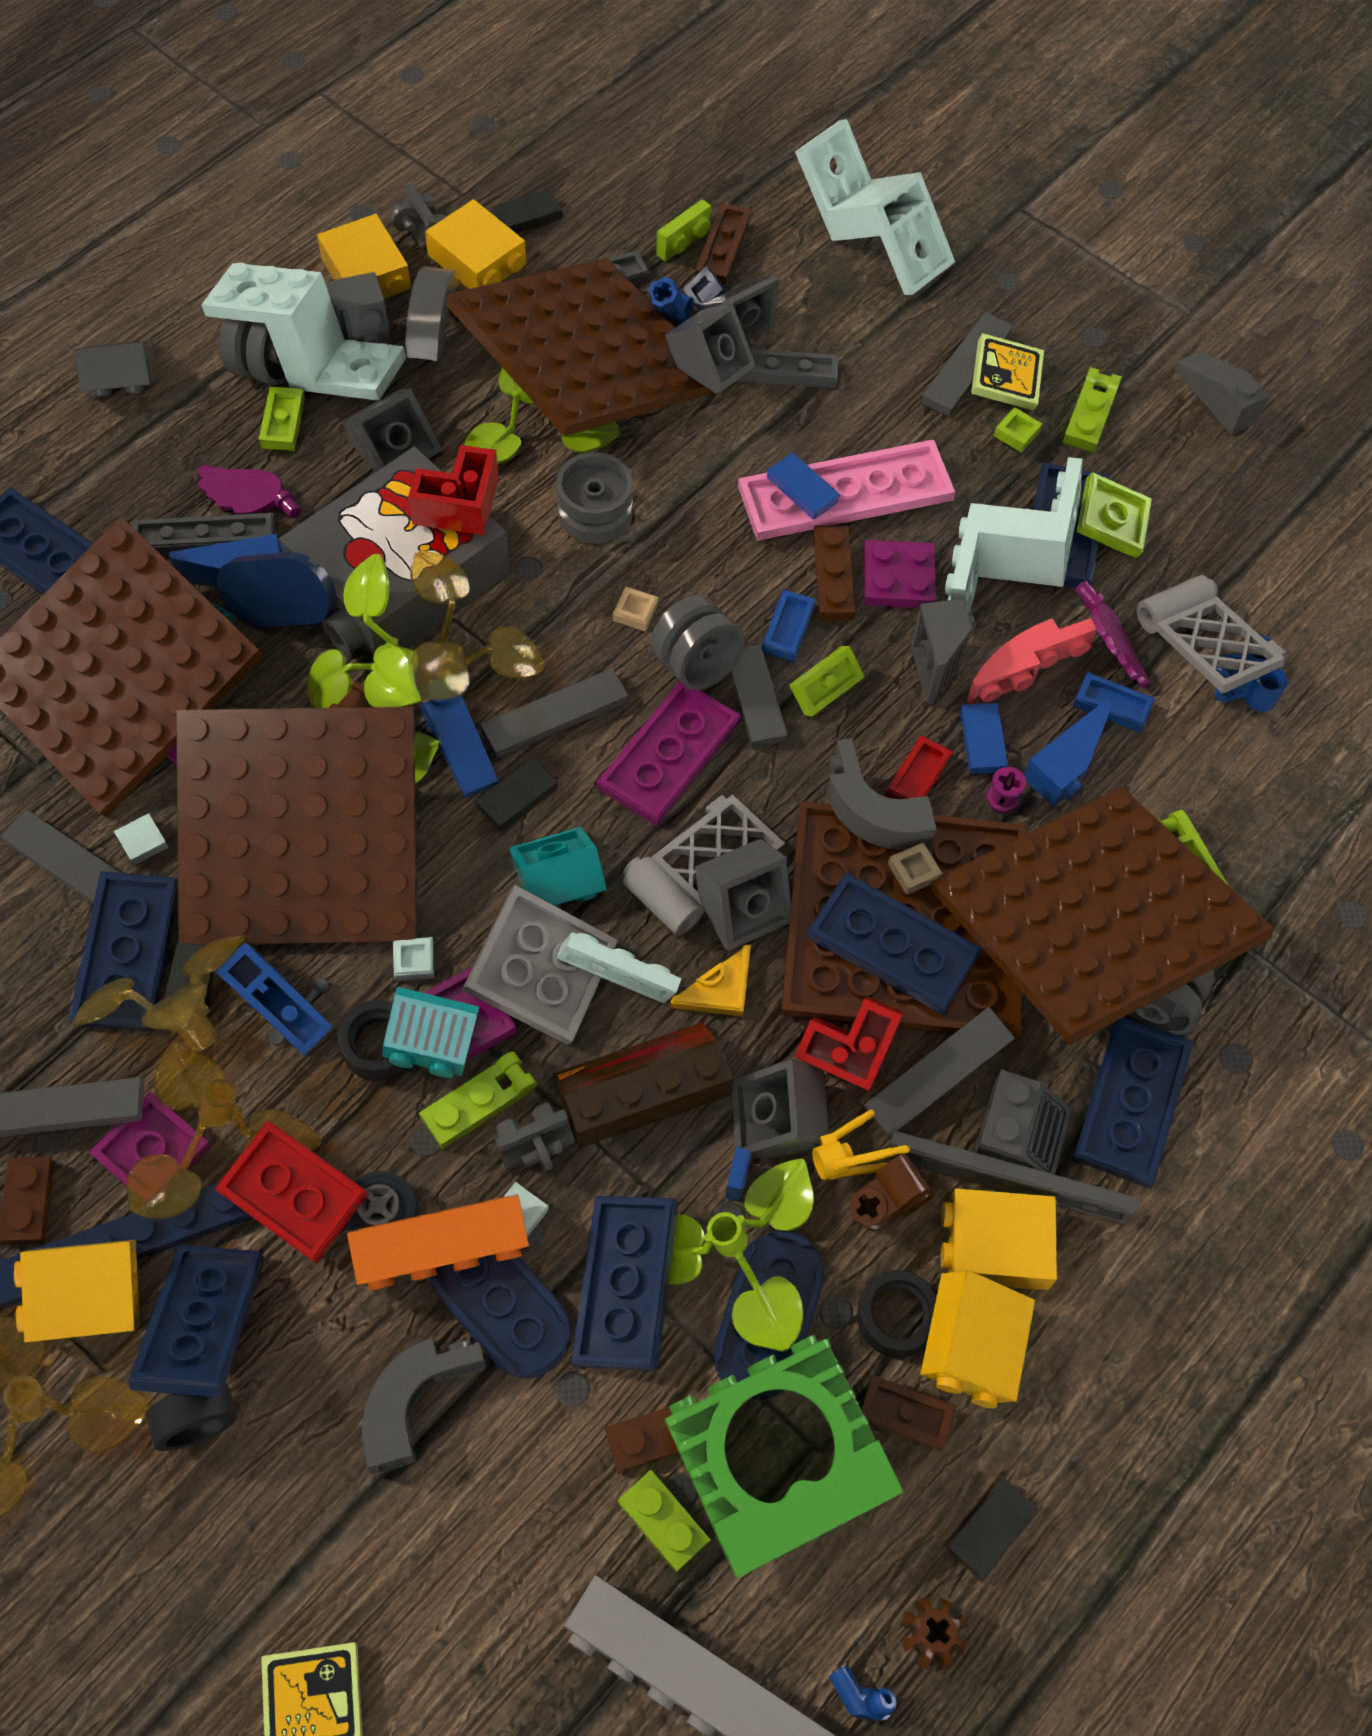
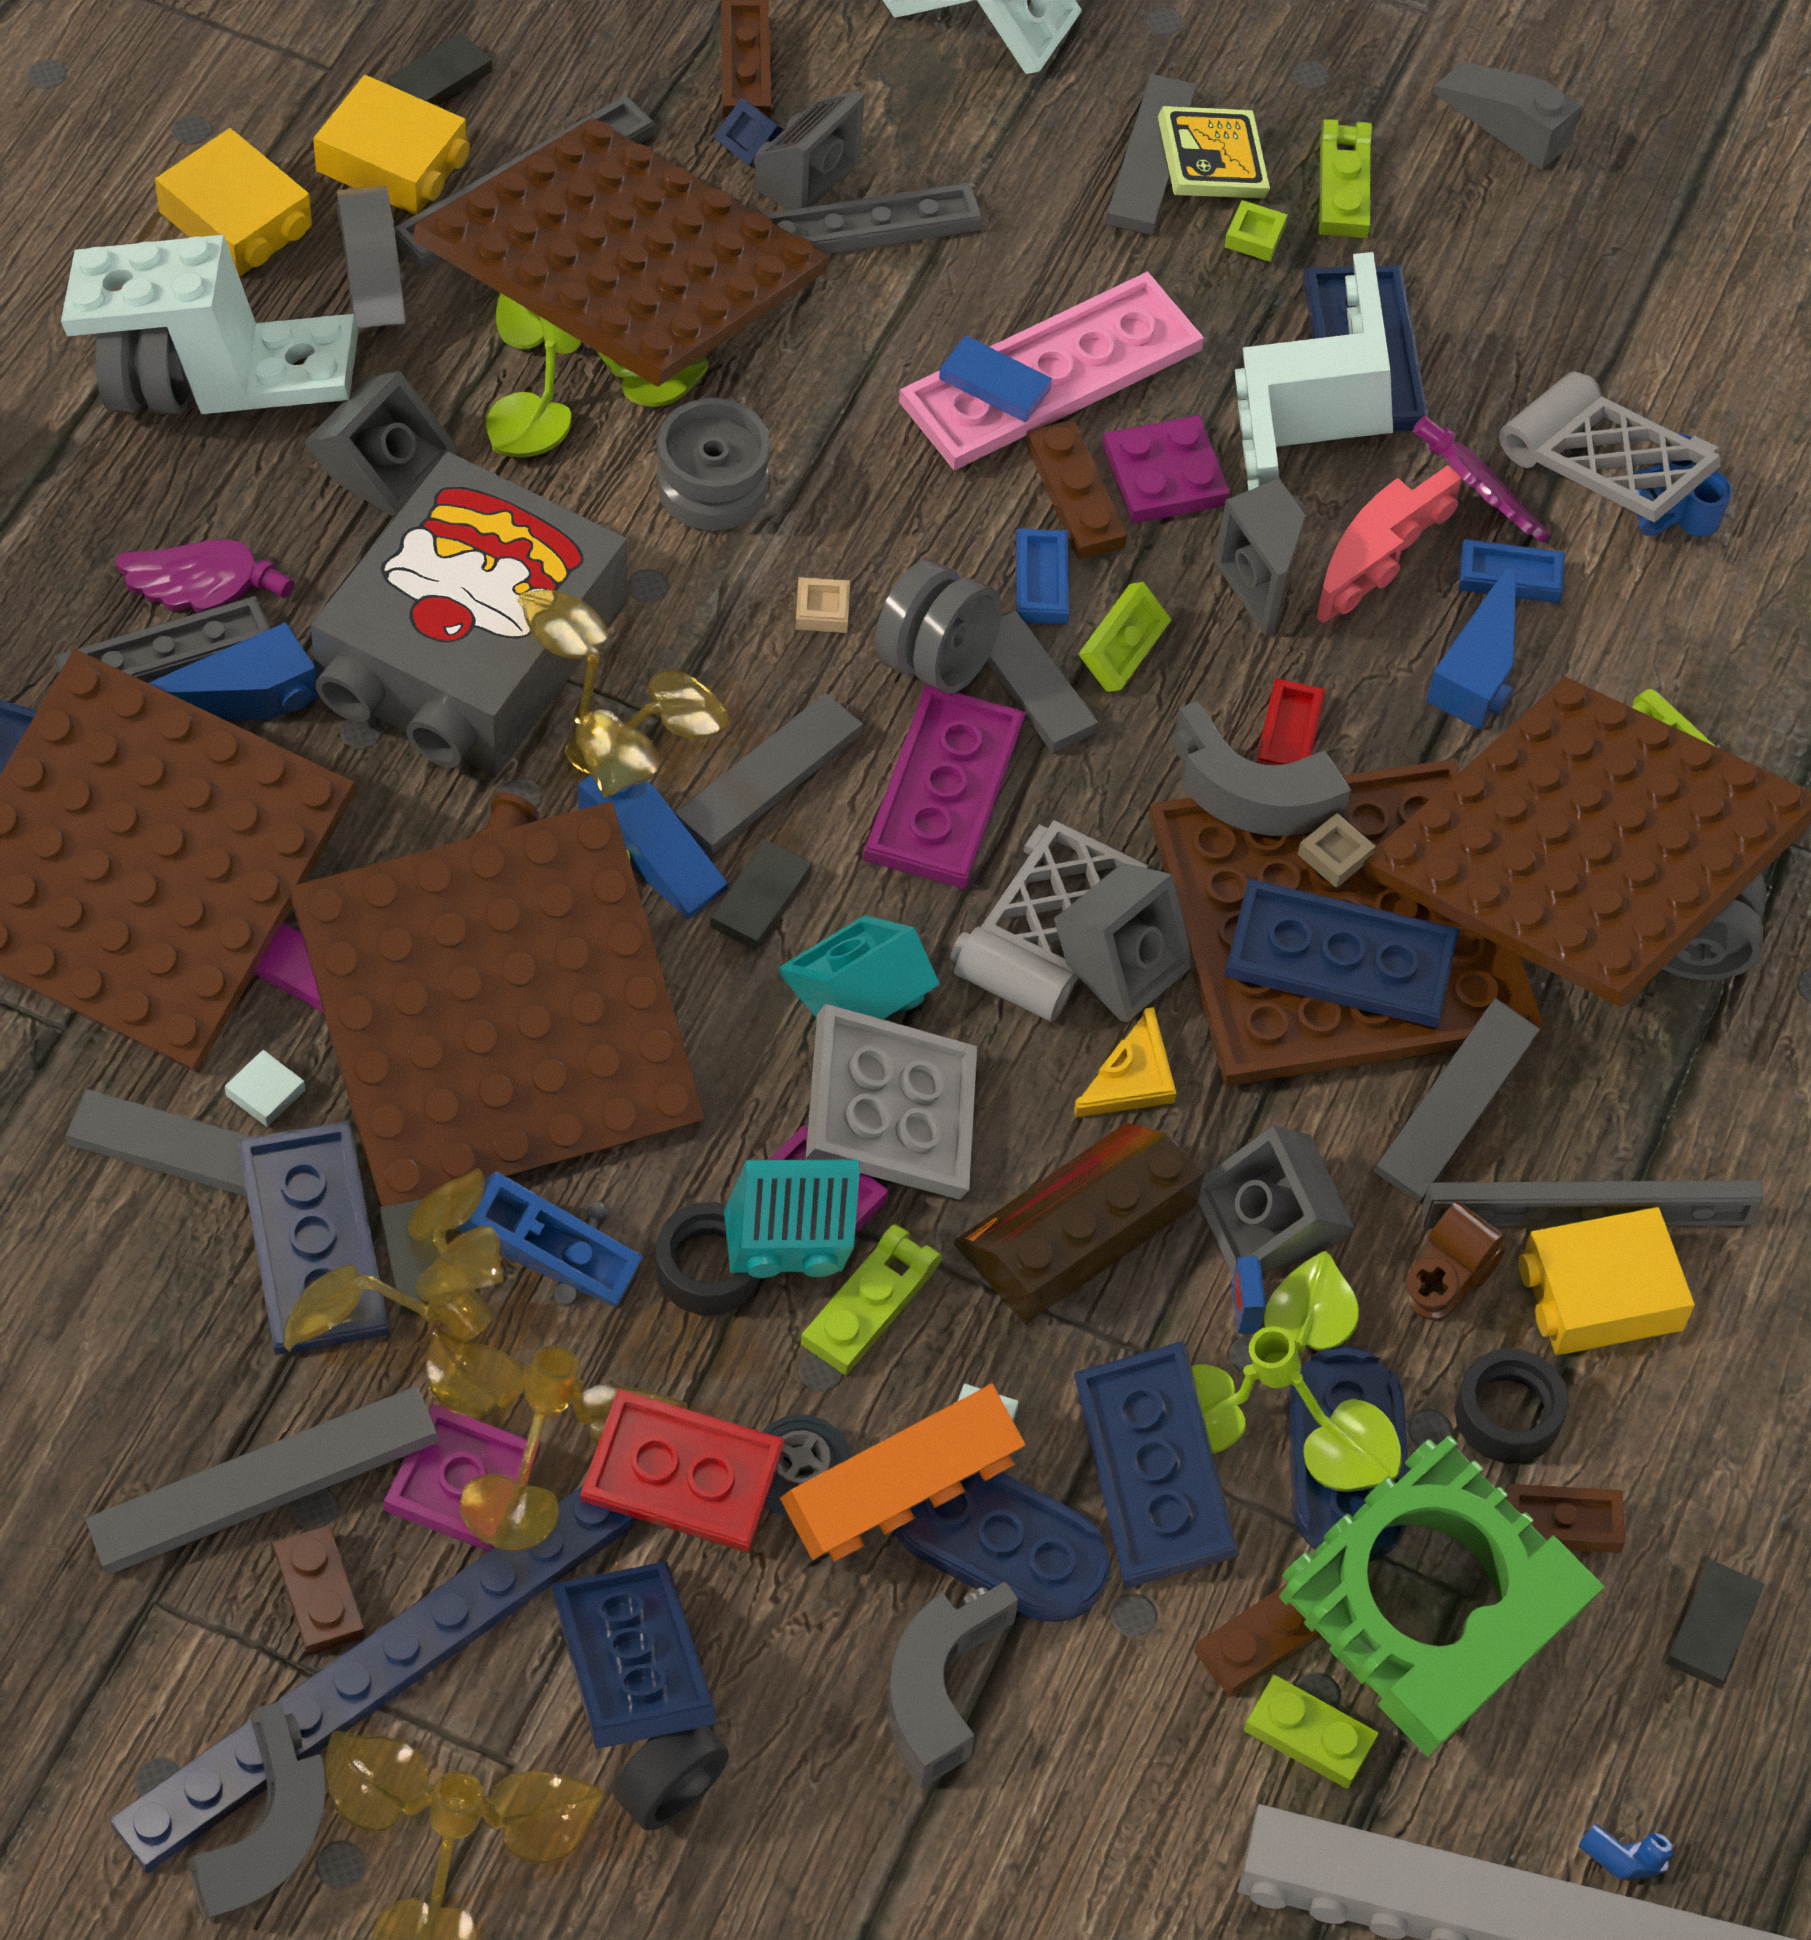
camera: 20 degrees left, 5 degrees down
(78, 1291) = (454, 1667): yellow brick -> none
(276, 589) = (331, 696): dark blue tile -> none
(282, 418) = (210, 459): lime plate -> none
(360, 308) = (277, 272): dark grey slope -> none
(392, 673) = (559, 765): lime plant -> none
(413, 959) = (710, 1145): light aqua tile -> none
(415, 214) = (281, 116): dark grey hips -> none
(456, 499) = (551, 509): red brick -> none
(536, 1140) = (972, 1327): dark grey hips -> none
(618, 967) = (997, 1077): light aqua plate -> none
(670, 300) = (710, 159): blue piece -> none
(683, 230) = (681, 52): lime plate -> none
(712, 347) = (802, 213): dark grey slope -> none
(837, 1159) = (1369, 1236): yellow plant -> none
(852, 1054) = (1348, 1102): red brick -> none
(947, 1635) = (1684, 1772): reddish brown piece -> none
(978, 1338) = (1622, 1400): yellow brick -> none
(983, 738) = (1358, 662): blue tile -> none
(1010, 792) = (1422, 721): magenta bush -> none
(1023, 1123) = (1582, 1130): dark grey slope -> none
(1114, 515) = (1428, 319): lime tile -> none
(1133, 1101) = (1710, 1072): dark blue tile -> none

